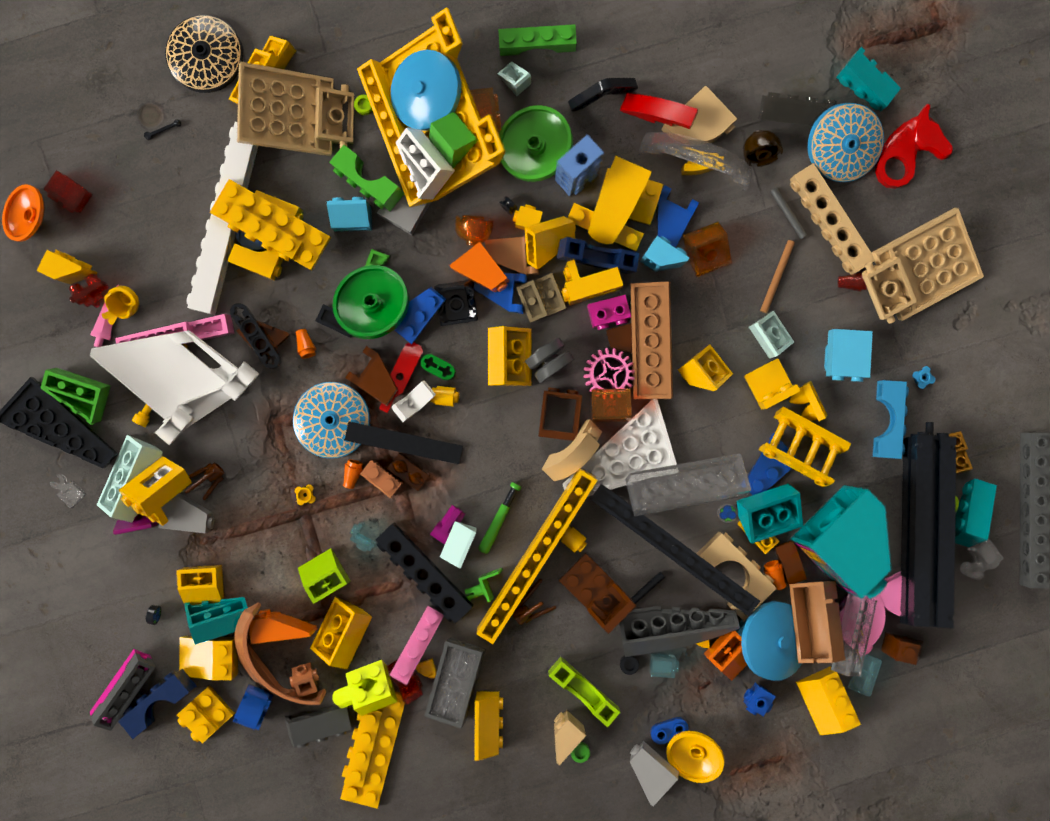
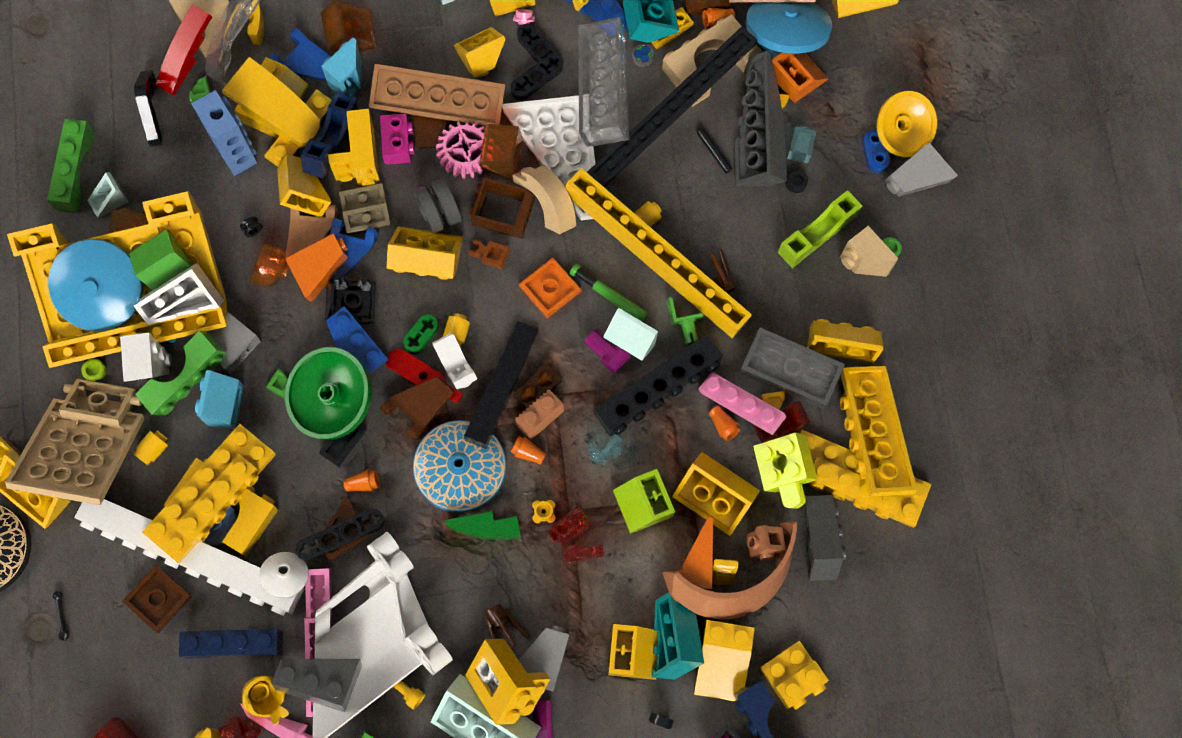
camera: 75 degrees left, 15 degrees down
(132, 344) = (318, 680): none -> dark grey wedge
(154, 251) = (230, 643): none -> dark blue arch
(185, 201) = (157, 599): none -> reddish brown plate
(208, 306) = (283, 584): none -> white dish
(253, 707) = (791, 609): blue brick -> none
(273, 529) = (575, 553): none -> clear red plate
(277, 650) = (724, 572): none -> yellow slope
(283, 450) = (485, 527): none -> green slope
(292, 519) = (570, 526): none -> clear red hips
(305, 167) = (151, 447): none -> yellow brick
(364, 147) = (143, 357): none -> white wedge
(401, 631) = (725, 425): none -> orange cone
(410, 760) = (876, 432): none -> yellow plate
(497, 467) = (550, 287): none -> orange tile
(517, 414) = (492, 254): none -> dark orange plate
(527, 216) = (269, 208): yellow brick -> none
(535, 142) = (191, 168): bright green dish -> none
(598, 593) = (720, 192): reddish brown bracket -> none
(628, 133) = (200, 89): none -> bright green tile
(707, 425) = (543, 63): none -> black beam
(746, 401) = (524, 16): none -> bright pink plate
(758, 699) = (851, 52): blue brick -> none

